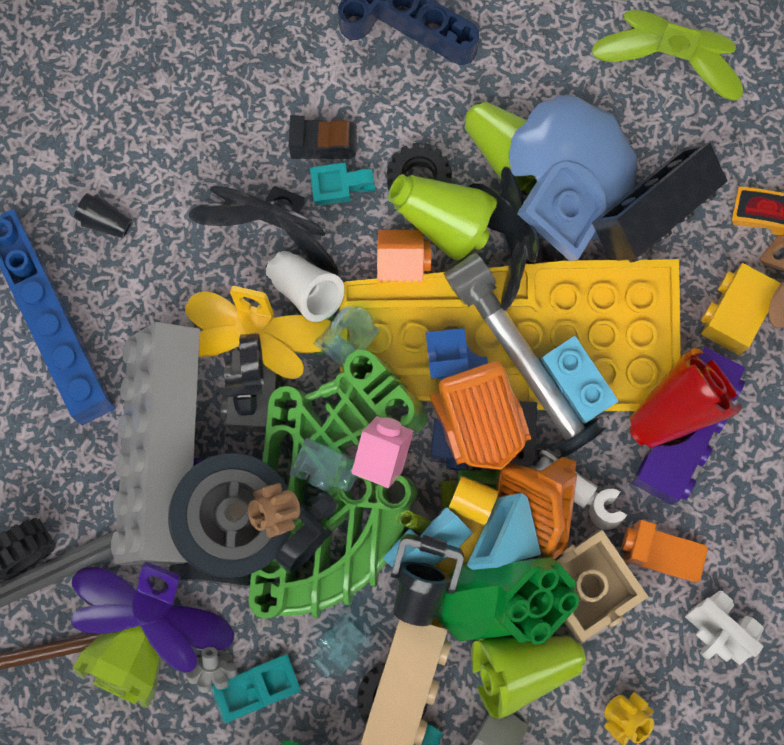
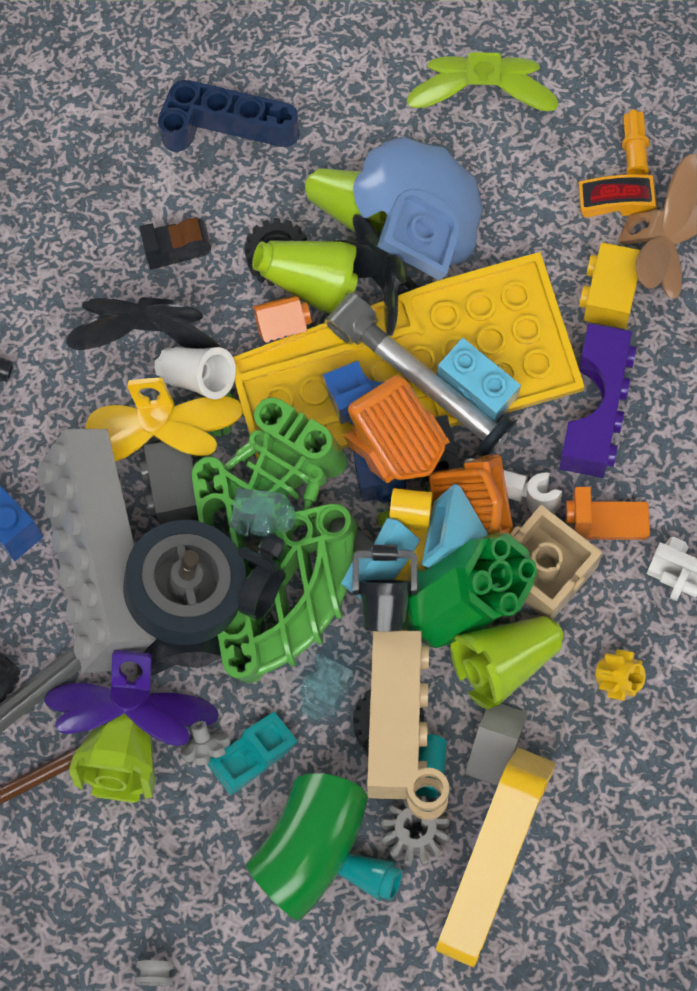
camera: 10 degrees left, 10 degrees down
(249, 383) = (168, 482): black piece -> none
(273, 510) = (225, 556): medium nougat gear -> none
(333, 183) = (198, 278): teal plate -> none
(360, 328) = (239, 412): clear light blue brick -> none
(382, 451) = (312, 479): bright pink brick -> none
(414, 521) = (359, 541): lime piece -> none
(660, 203) = (508, 209): black brick -> none
(684, 402) = (581, 373): red cone -> none

